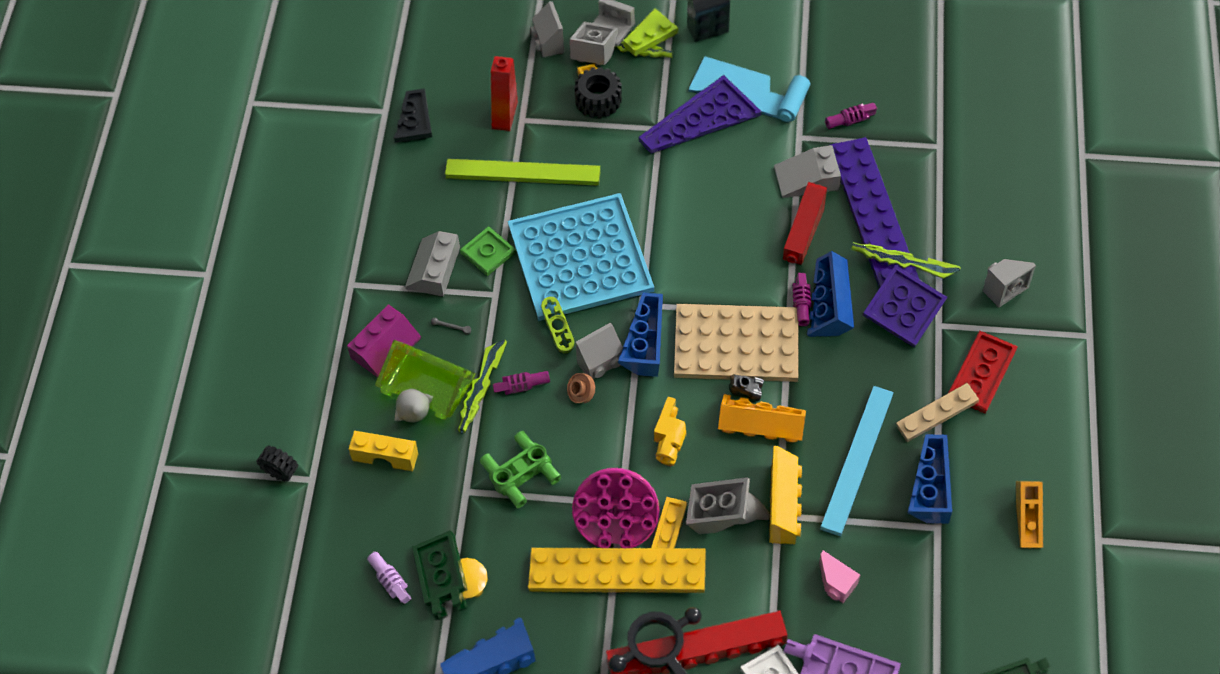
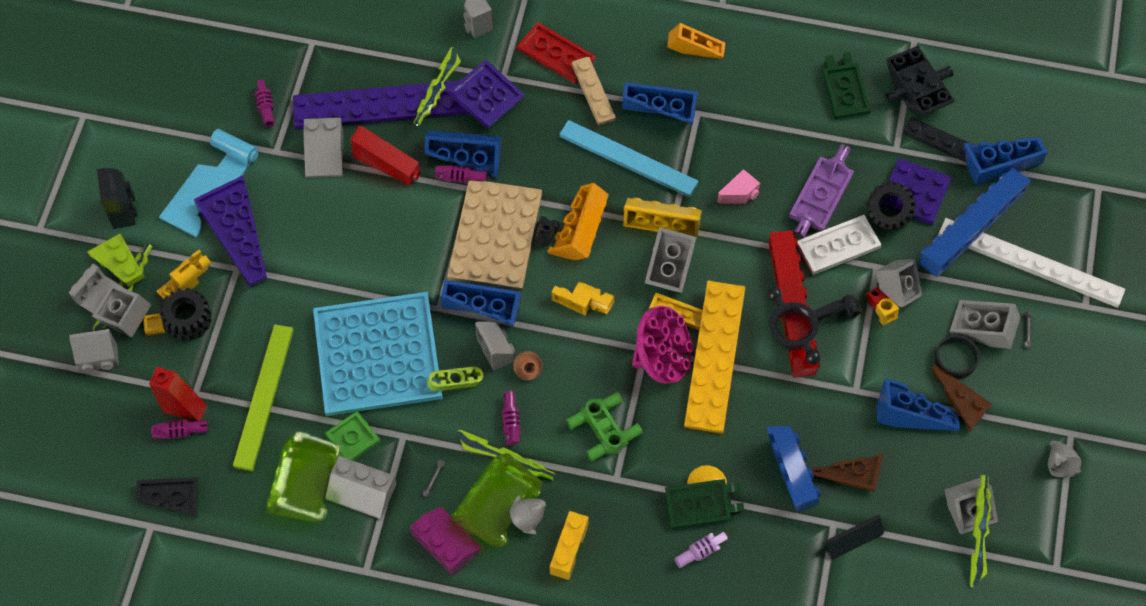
camera: 85 degrees left, 5 degrees up
(428, 212) = (302, 478): none -> clear neon green windscreen
(480, 111) = (178, 429): none -> magenta hinge
(640, 85) = (186, 274): none -> yellow plate

